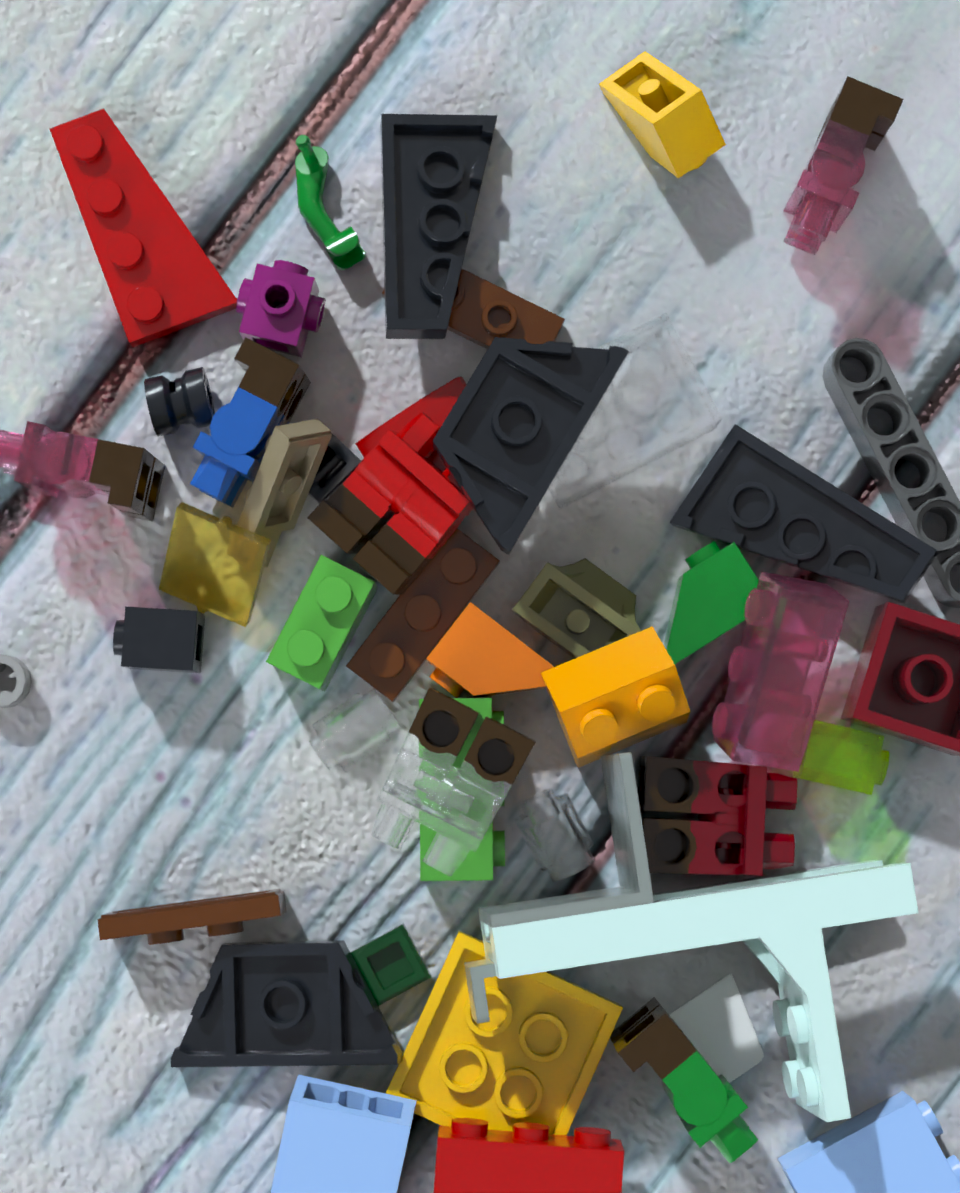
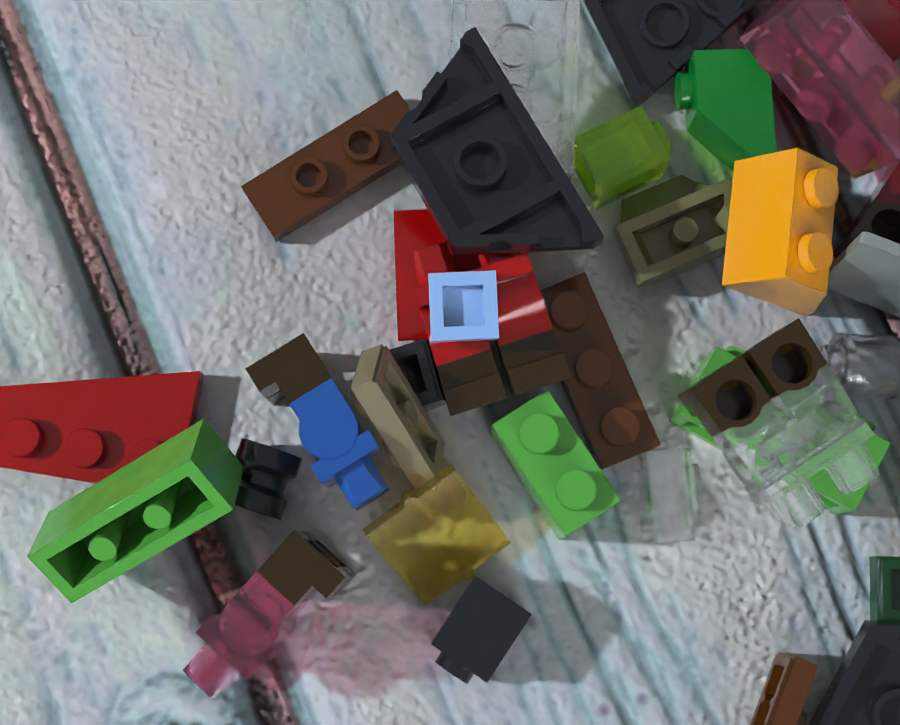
camera: 65 degrees left, 5 degrees down
(96, 322) = (137, 511): none -> bright green brick
(284, 327) = (213, 314): magenta brick -> none
(311, 176) = (121, 238): green piece -> none
(394, 475) = (463, 306): none -> light blue tile
(428, 207) = (218, 145): black wing -> none
(484, 658) = (671, 334): orange slope -> none
(614, 534) = (621, 156): none -> clear neon green brick

